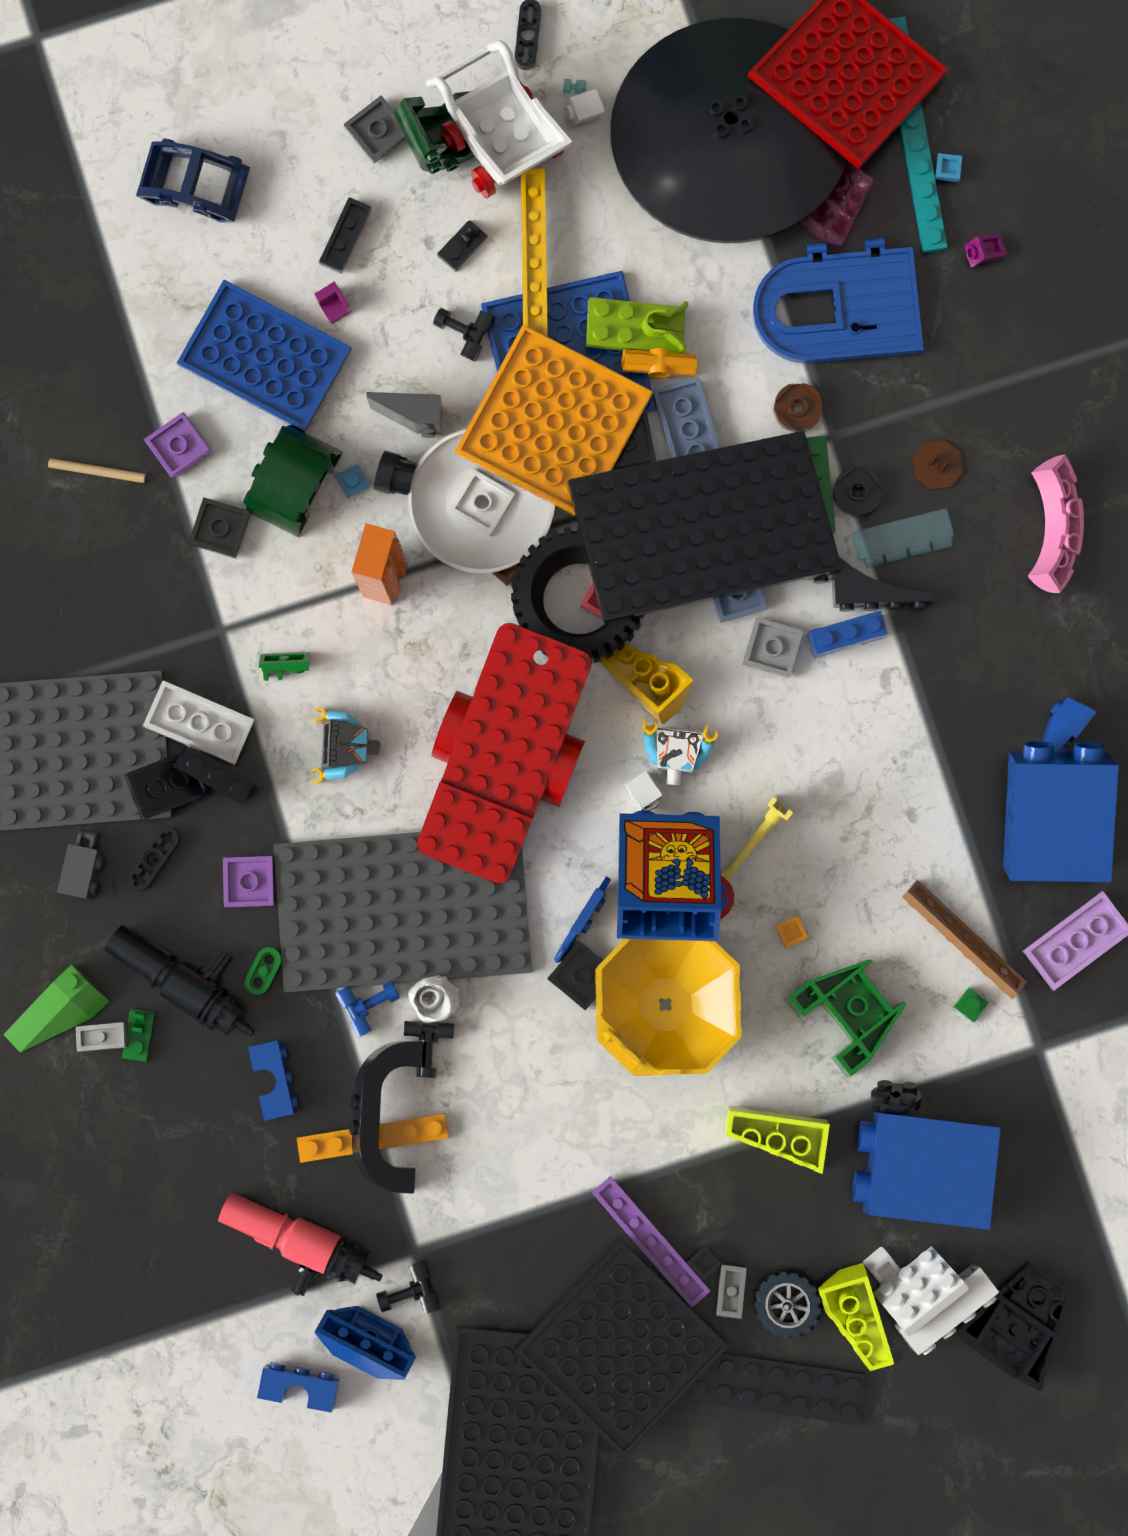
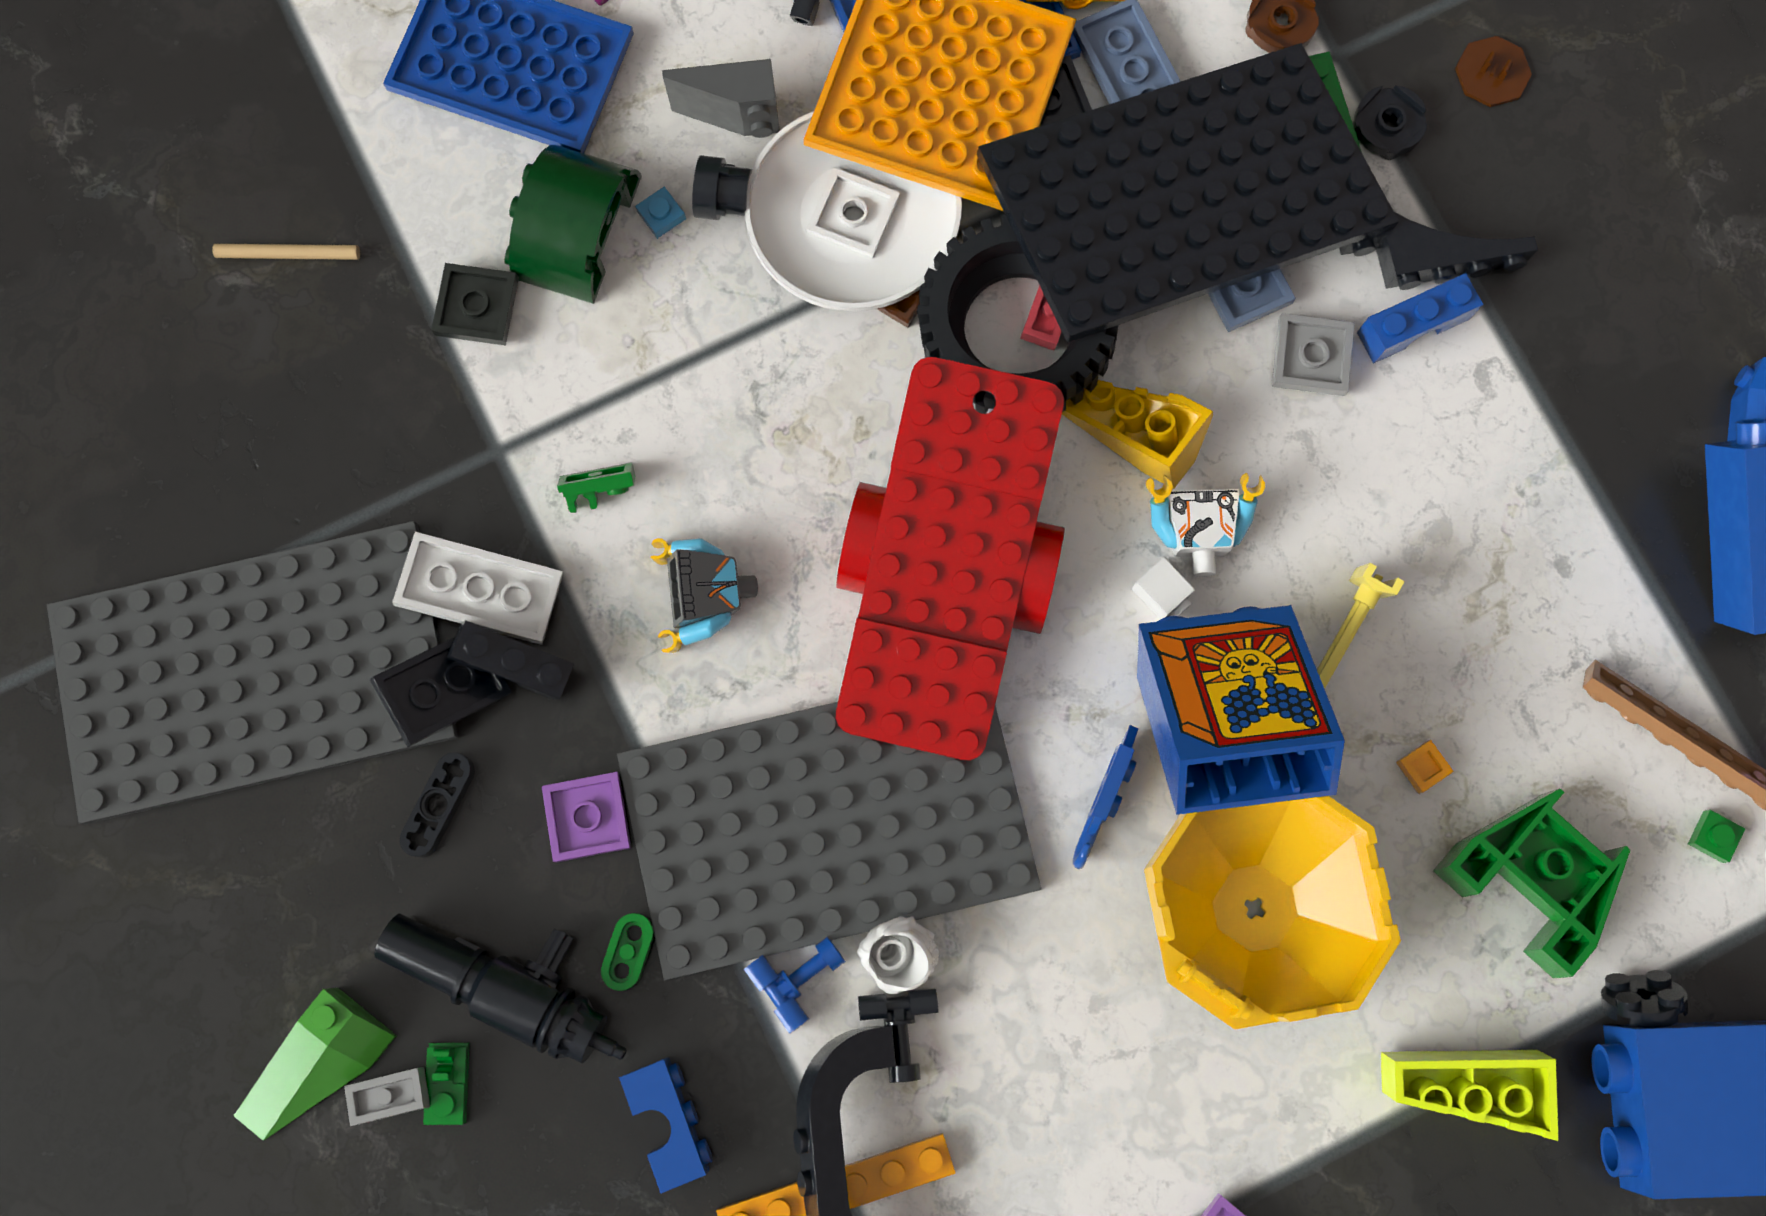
camera: 10 degrees left, 5 degrees down
(81, 867) = (325, 834): dark grey brick -> none
(178, 445) = (400, 198): medium lavender plate -> none
(379, 564) = (716, 298): orange brick -> none
(577, 975) = (1114, 883): black plate -> none
(900, 535) = (1467, 174): clear light blue windscreen -> none
(1062, 524) = (1691, 120): bright pink brick -> none

